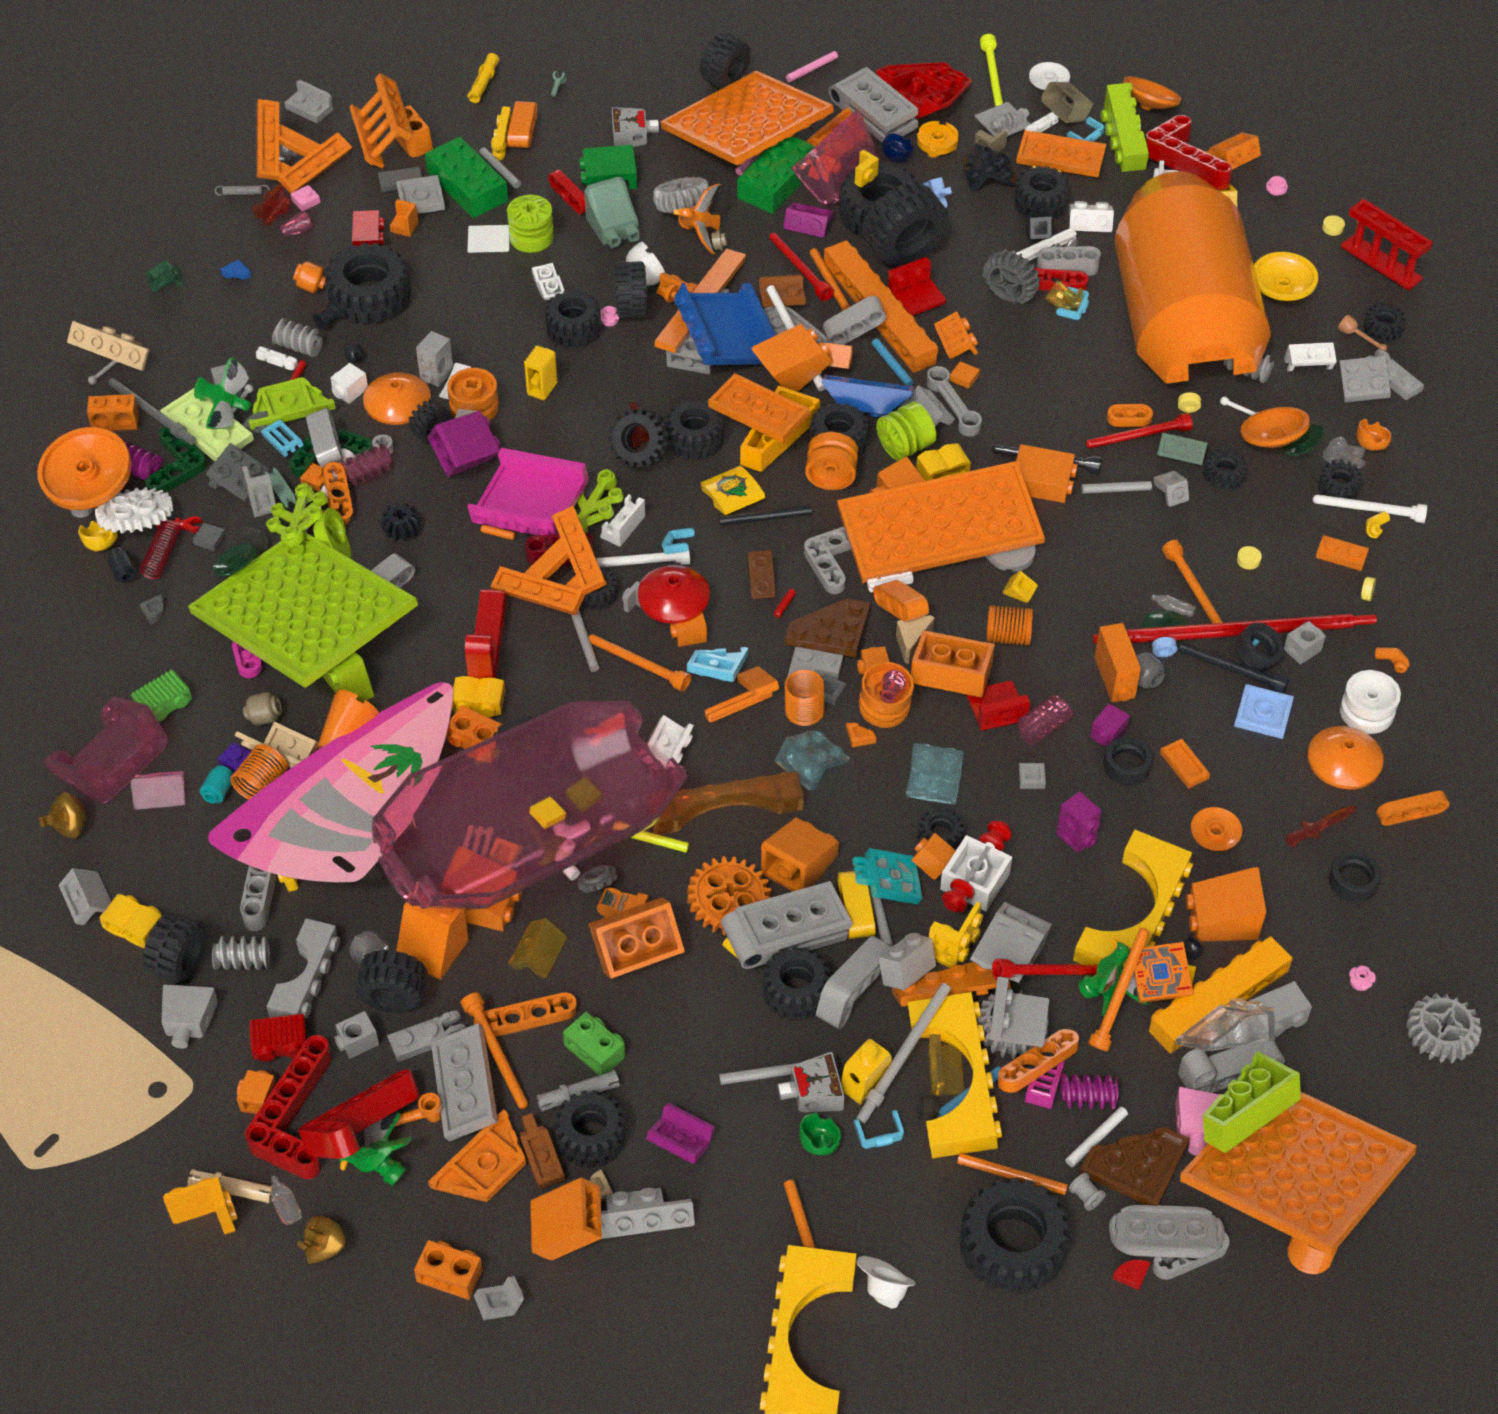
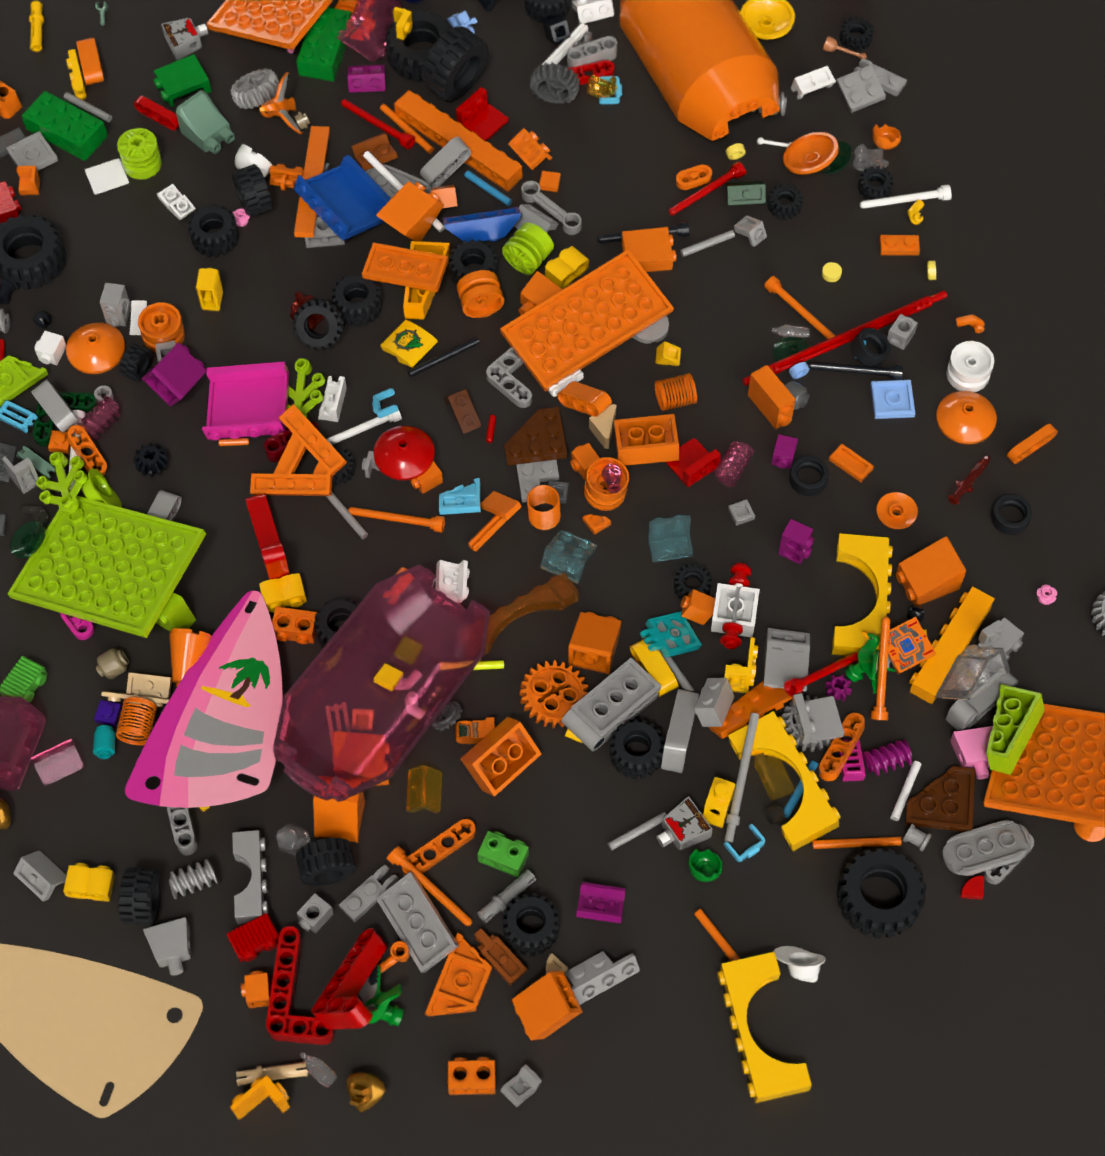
camera: 20 degrees left, 10 degrees up
(1063, 996) = (839, 683): none -> magenta gear
(1269, 989) = (991, 633): none -> light grey plate

